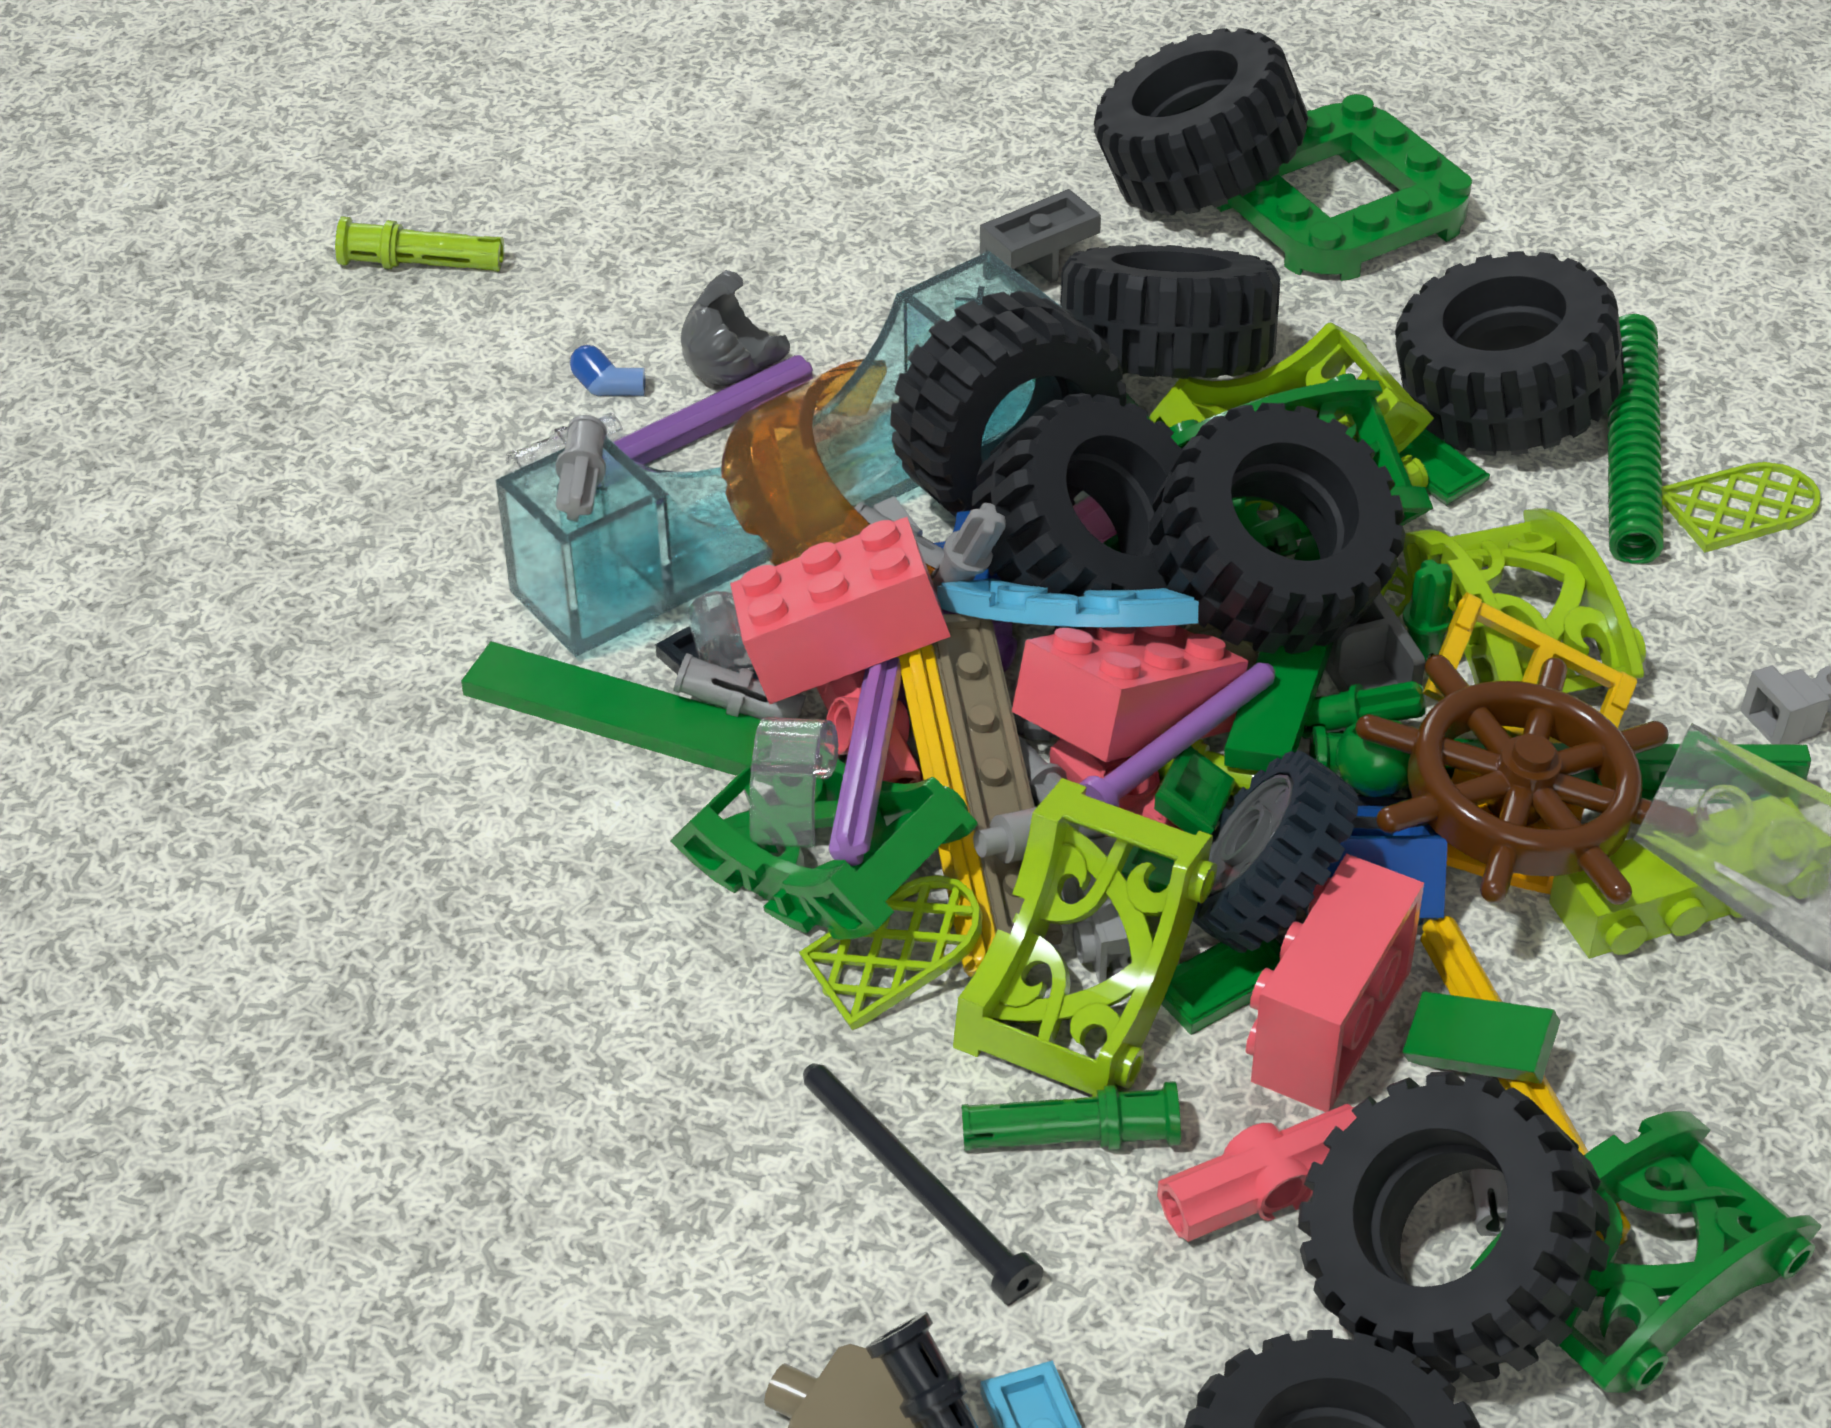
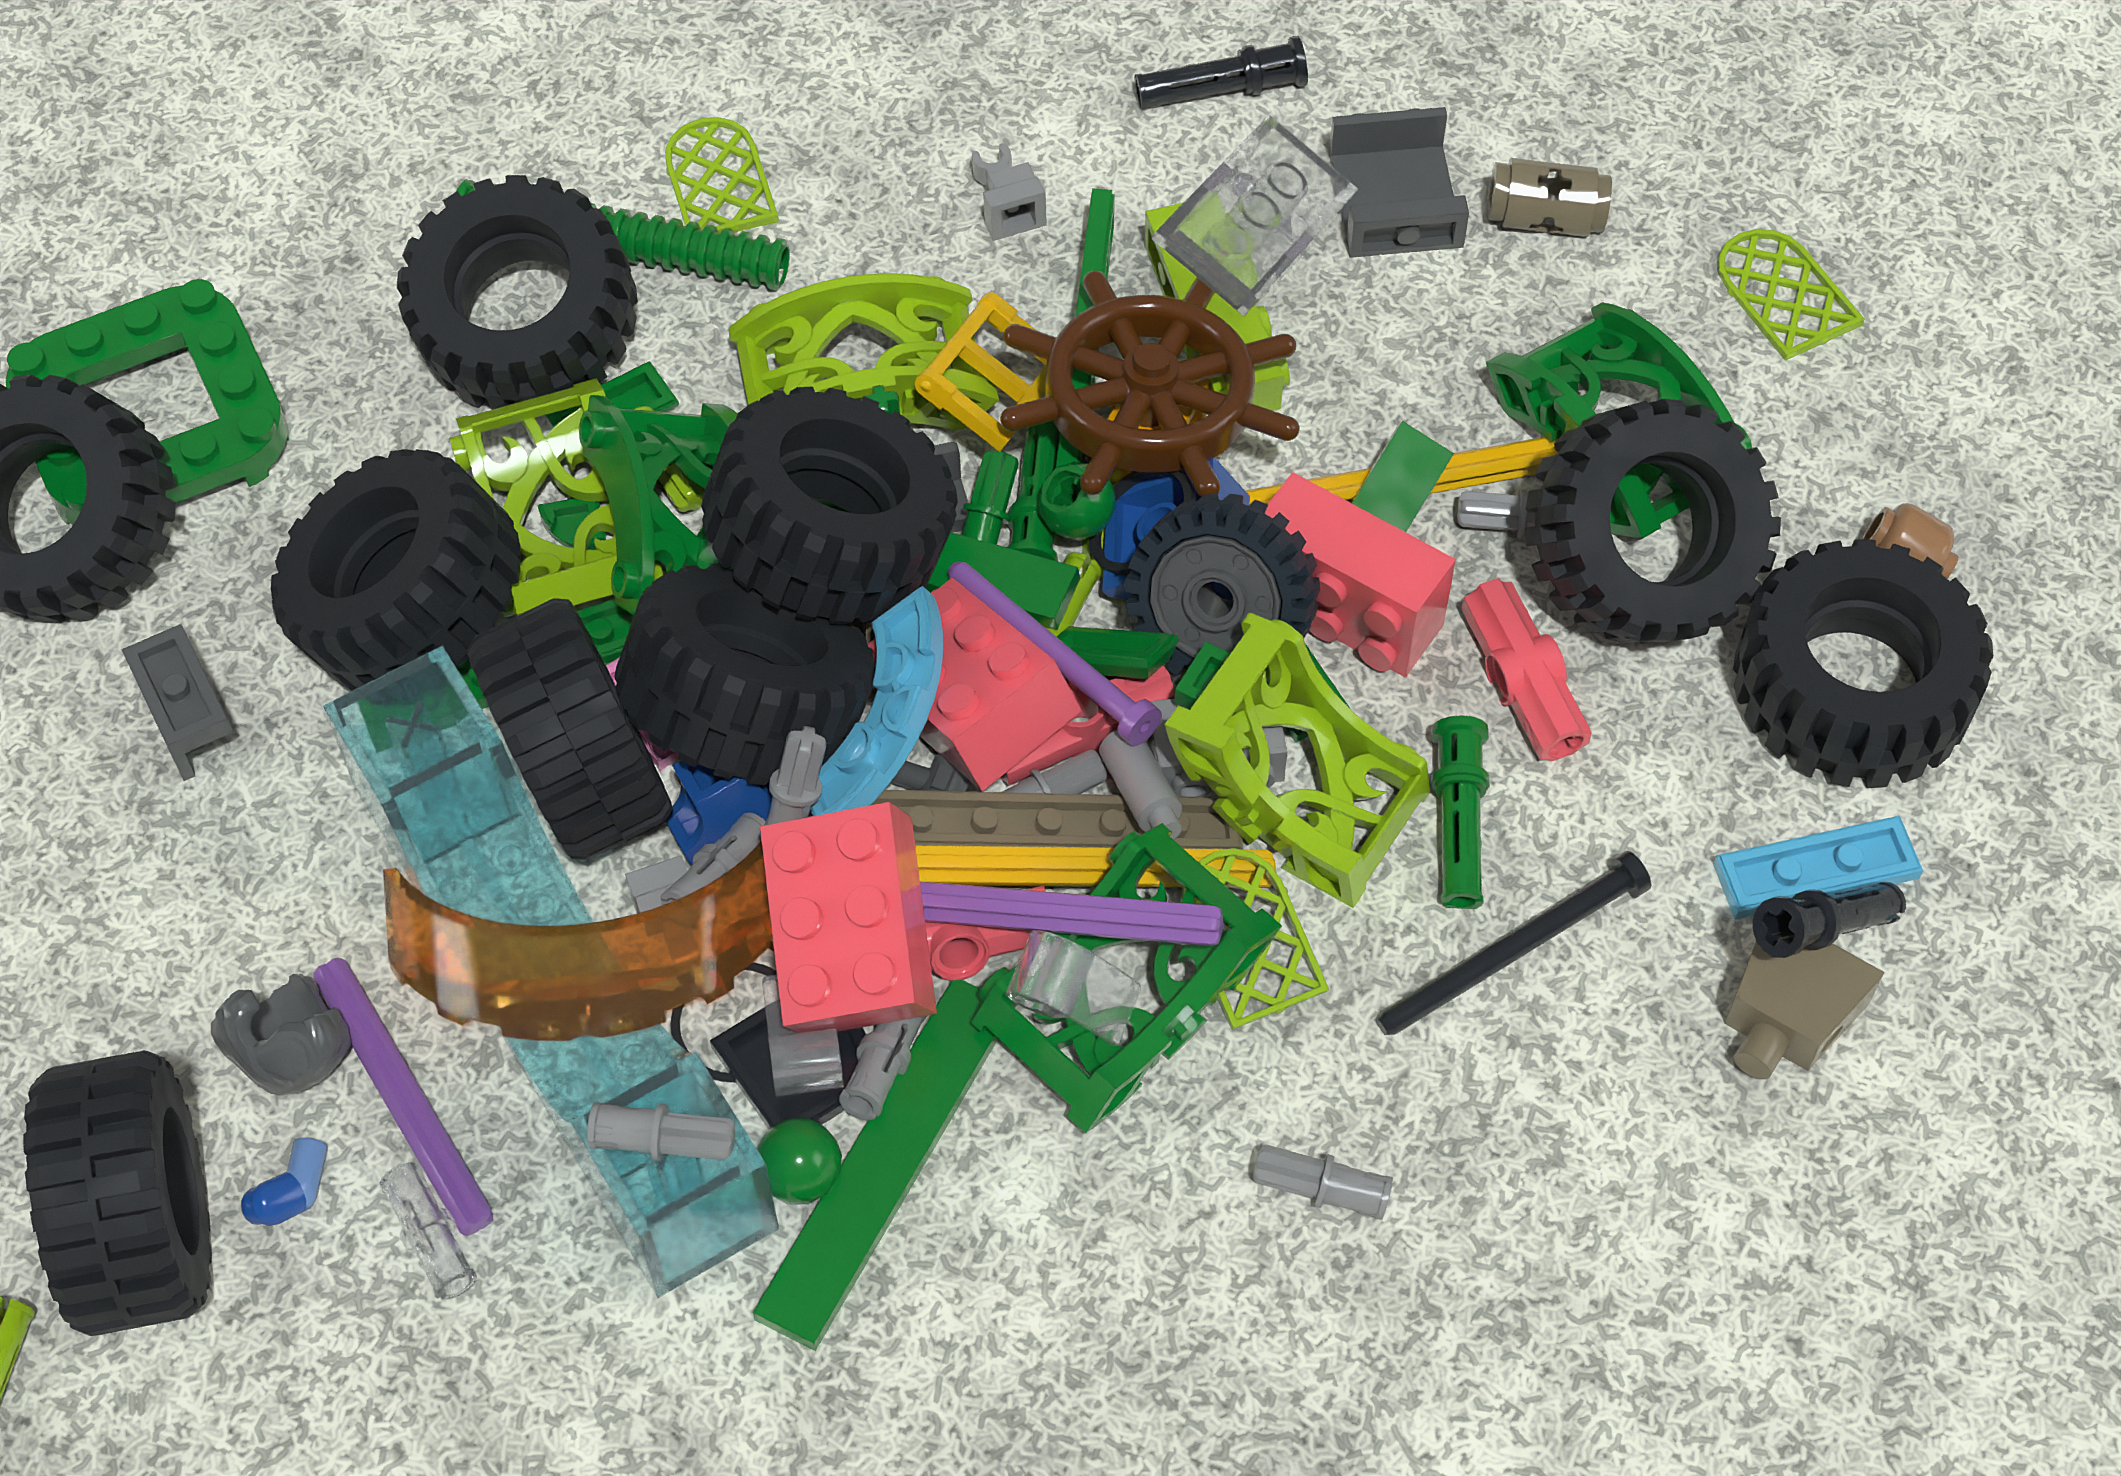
camera: 85 degrees left, 15 degrees up
(539, 181) = (117, 1193): none -> black tyre
(627, 1022) = (1323, 1181): none -> light grey axle
(629, 645) = (800, 1160): none -> green piece

